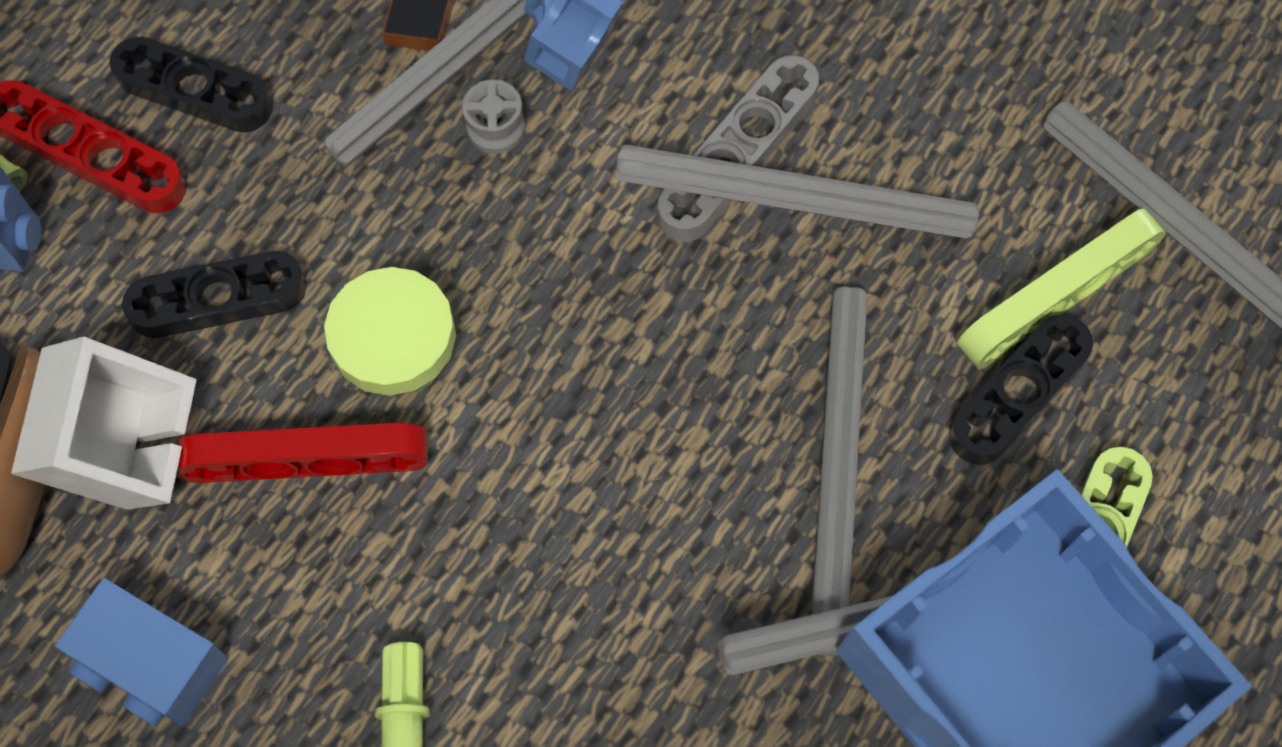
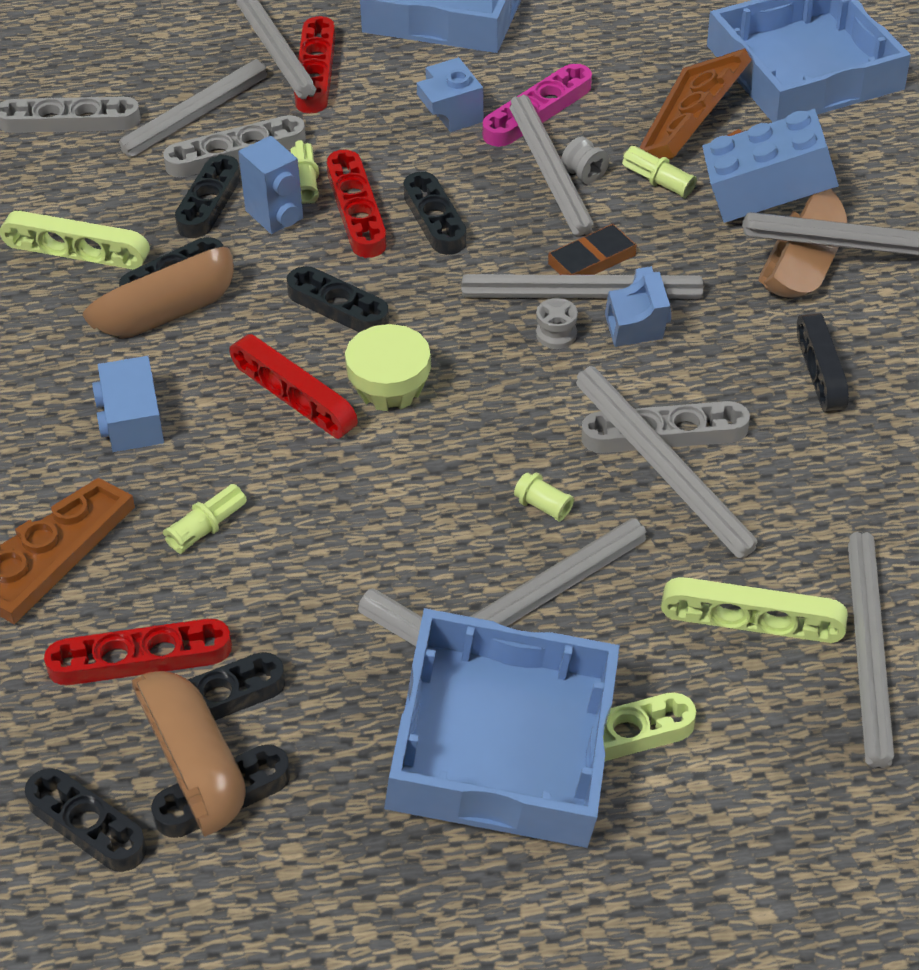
camera: 45 degrees right, 20 degrees down
(89, 414) = (220, 295): white piece -> none
(720, 343) = (543, 496): none -> yellowish green pin
(1036, 347) = (688, 625): black beam -> none

